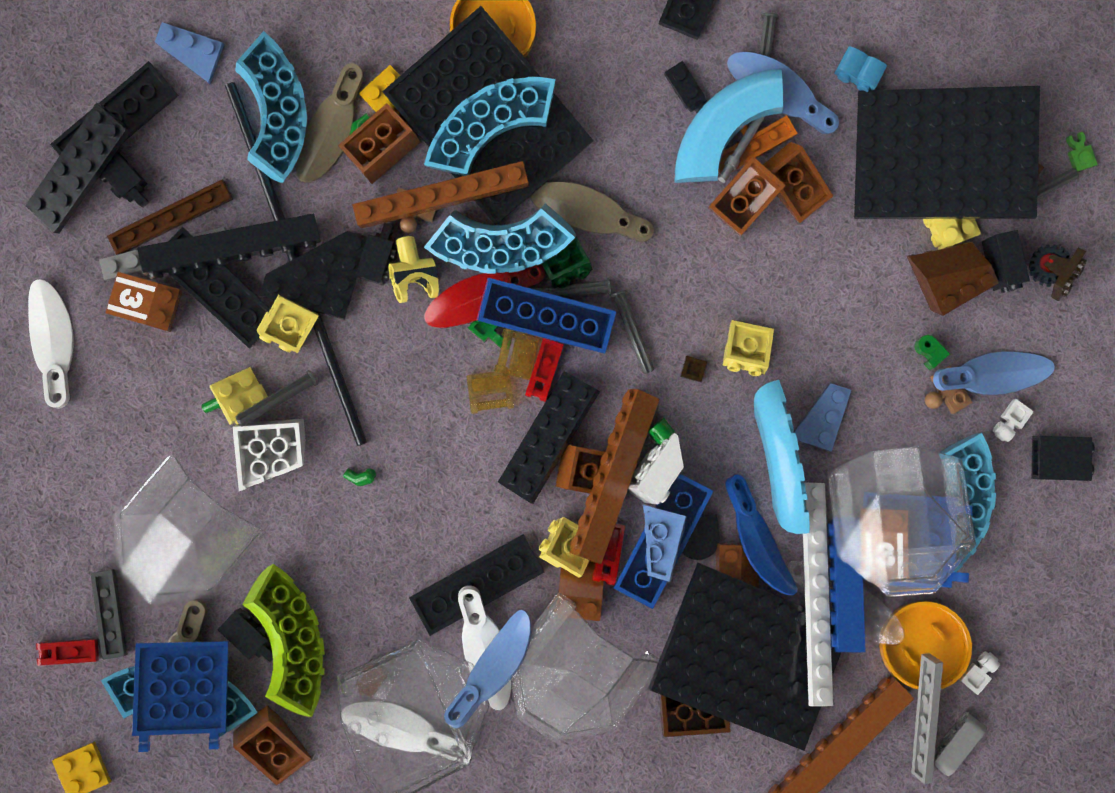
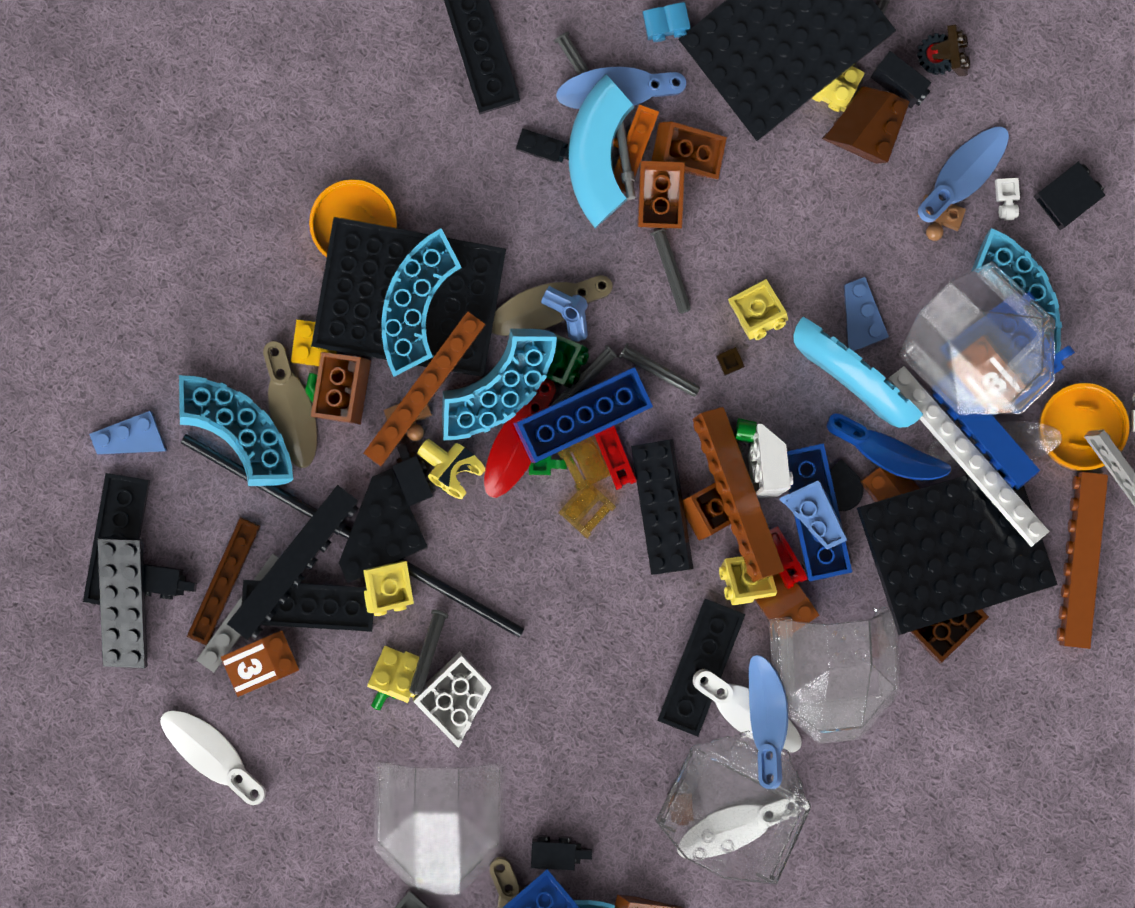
camera: 40 degrees left, 0 degrees up
(293, 640) = (596, 827): lime brick -> none
(360, 479) = (544, 659): green arm -> none
(604, 228) = (572, 311): none -> medium blue piece
(706, 262) = (671, 270): none -> dark grey axle
(931, 349) = (901, 194): green leg -> none

